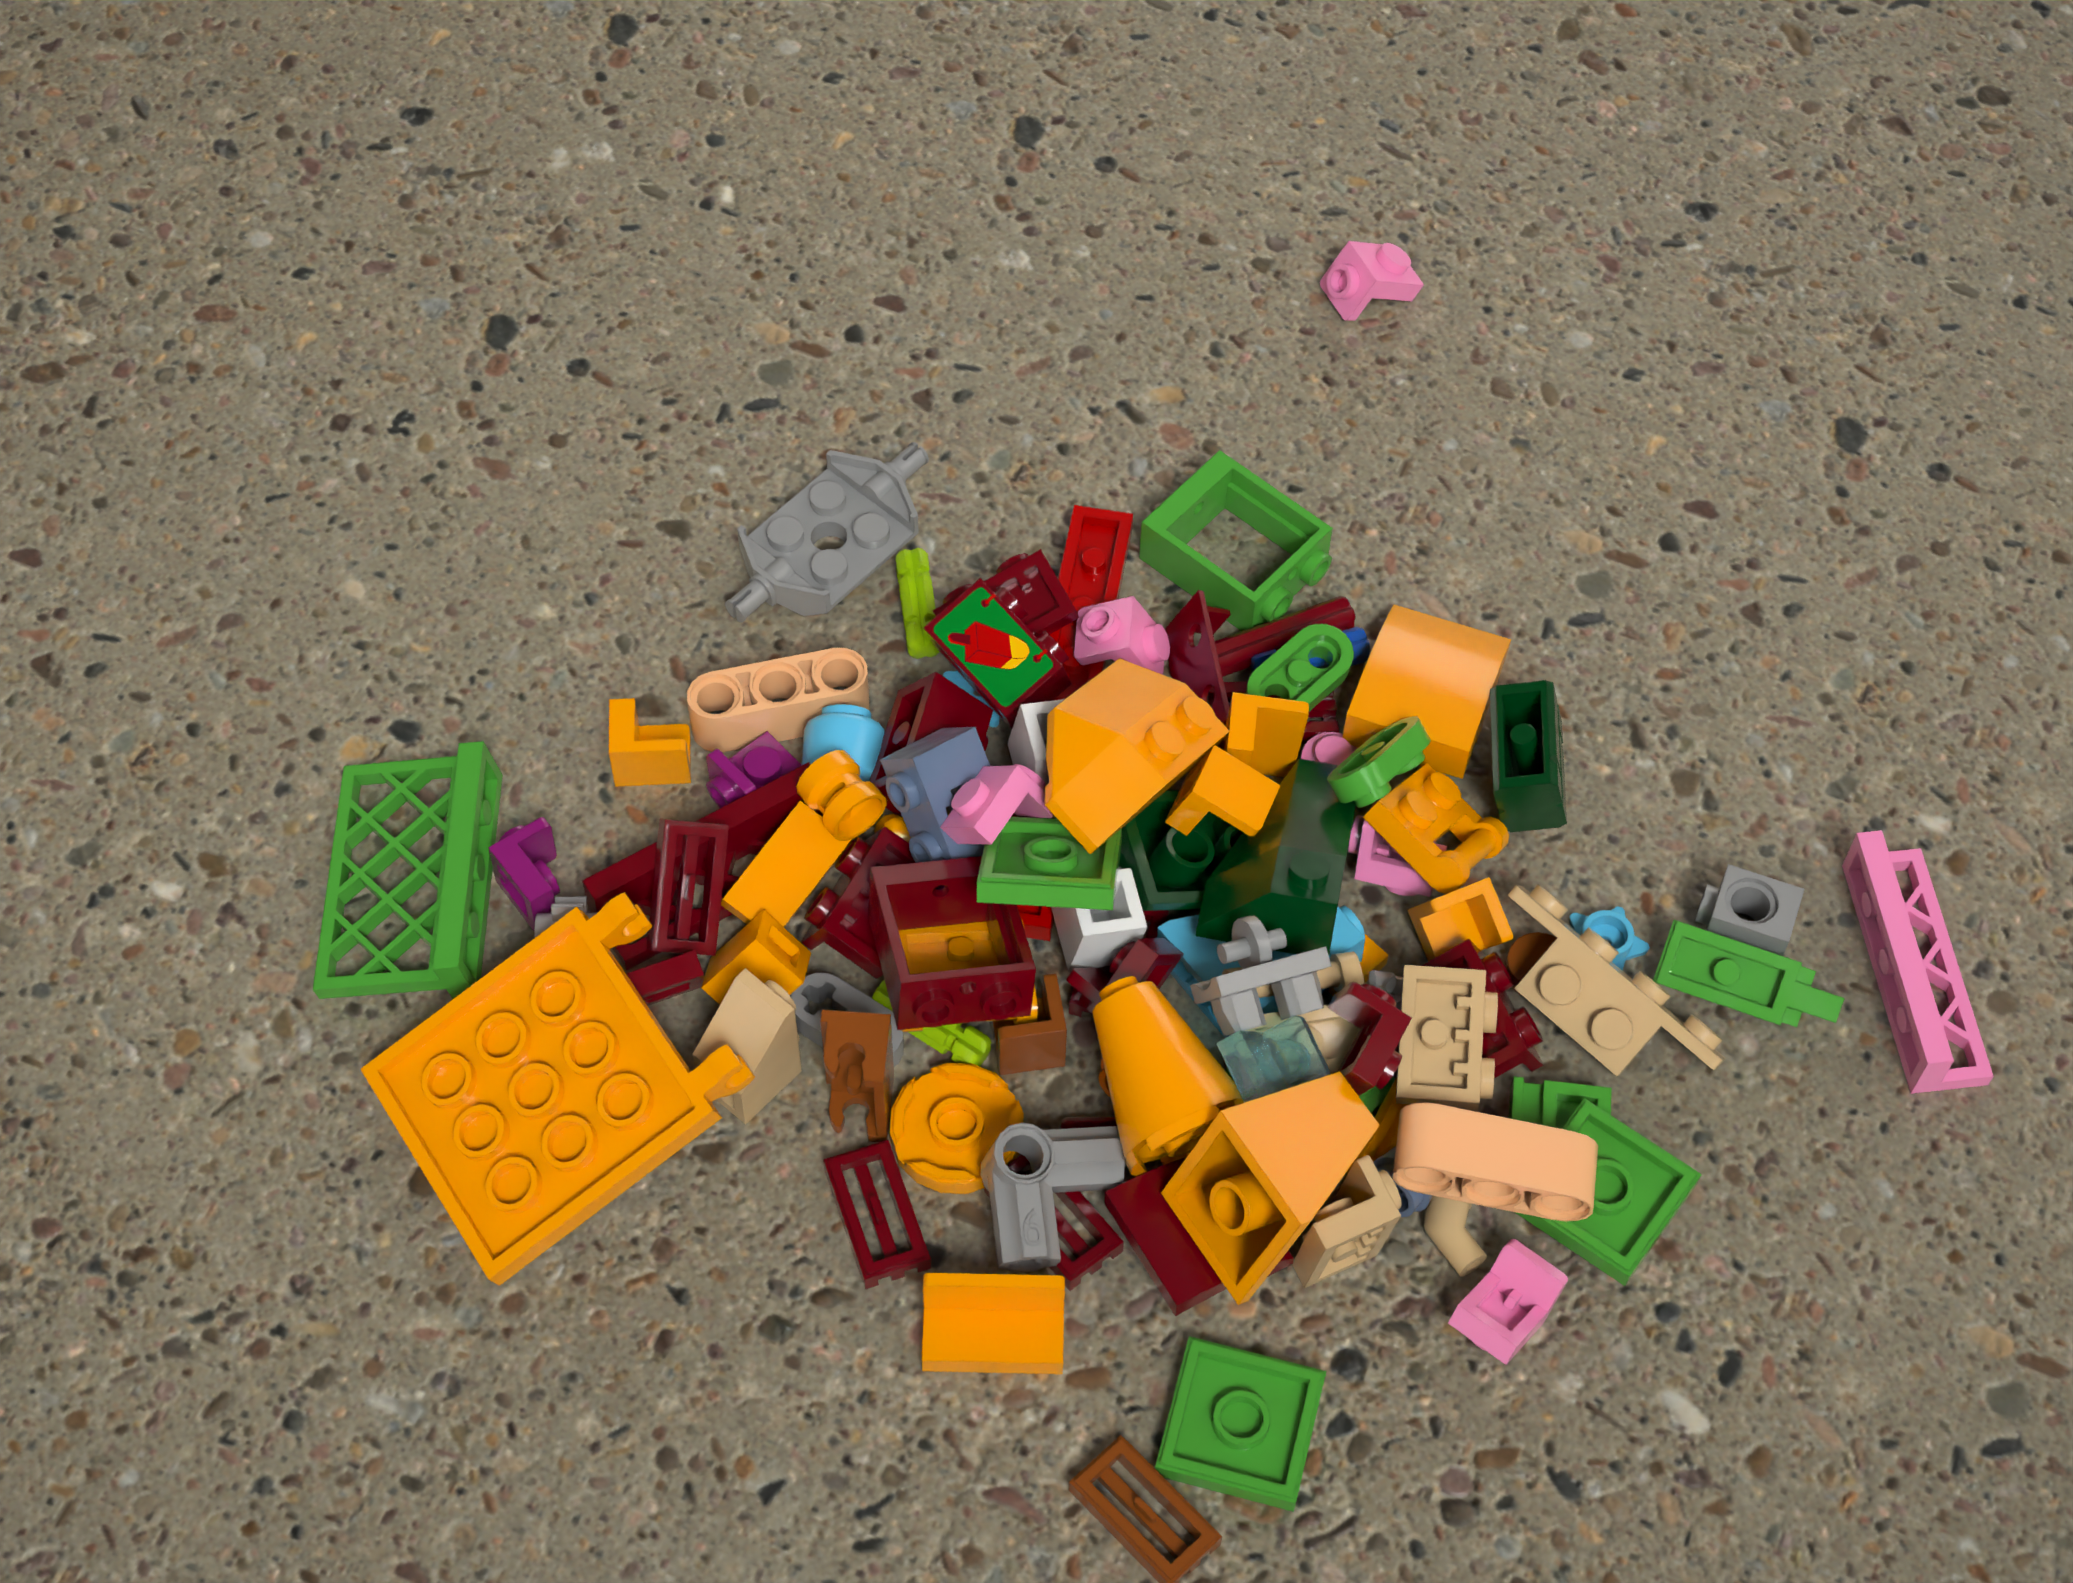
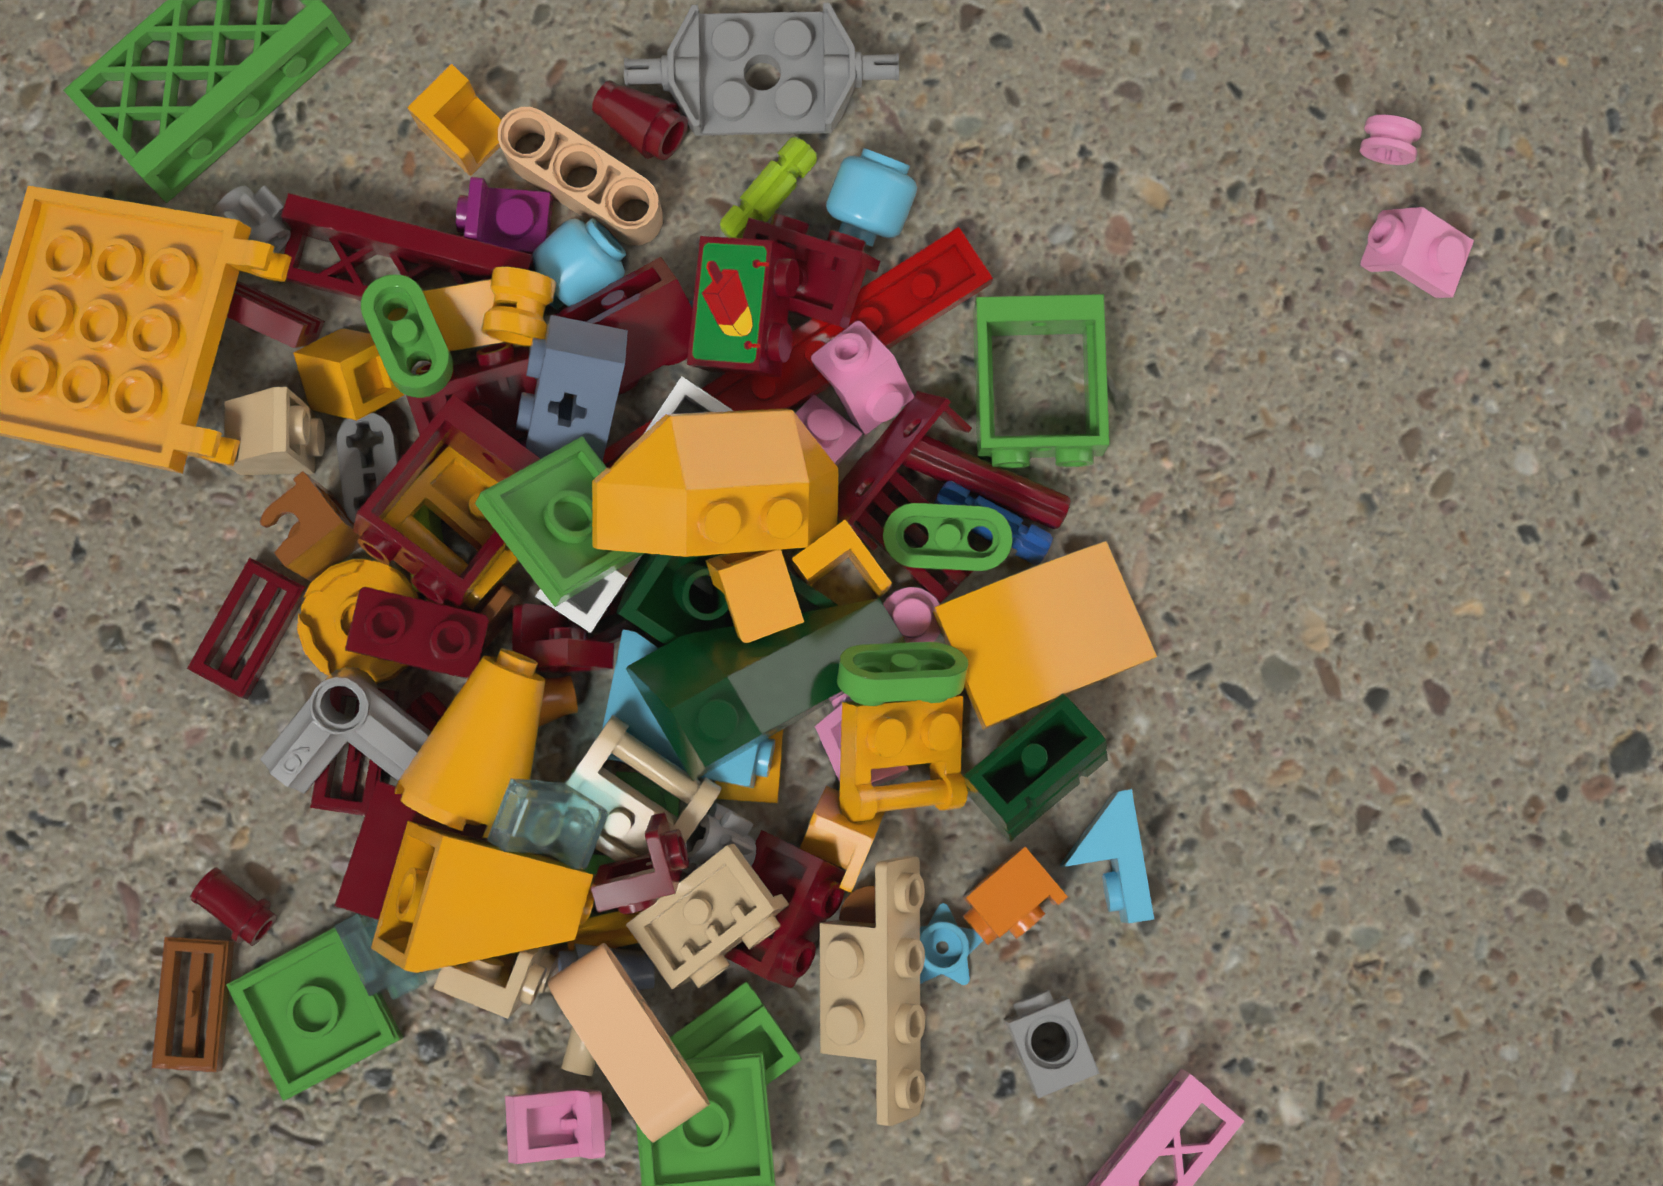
camera: 50 degrees right, 25 degrees up
(521, 868) = (266, 149): magenta bracket -> none
(663, 880) = (385, 235): dark red tile -> none
(777, 633) = (641, 119): none -> dark red cone
(787, 884) = (409, 339): none -> bright green plate
(990, 533) = (871, 196): none -> medium azure head
(990, 800) = (578, 431): bright pink bracket -> none
(993, 1323) = (229, 787): light orange panel -> none
(1022, 1067) = (416, 633): none -> dark red bracket
(1096, 1406) = (234, 907): none -> dark red pin
(1235, 993) = (610, 752): light grey hips -> none
(1244, 1325) = (373, 969): none -> clear light blue bracket
(1278, 234) = (1390, 139): none -> bright pink bush
(1610, 853) = (1011, 897): none -> orange brick
(1634, 758) = (1116, 838): none -> medium azure slope
(1741, 977) = (992, 1081): bright green hinge -> none

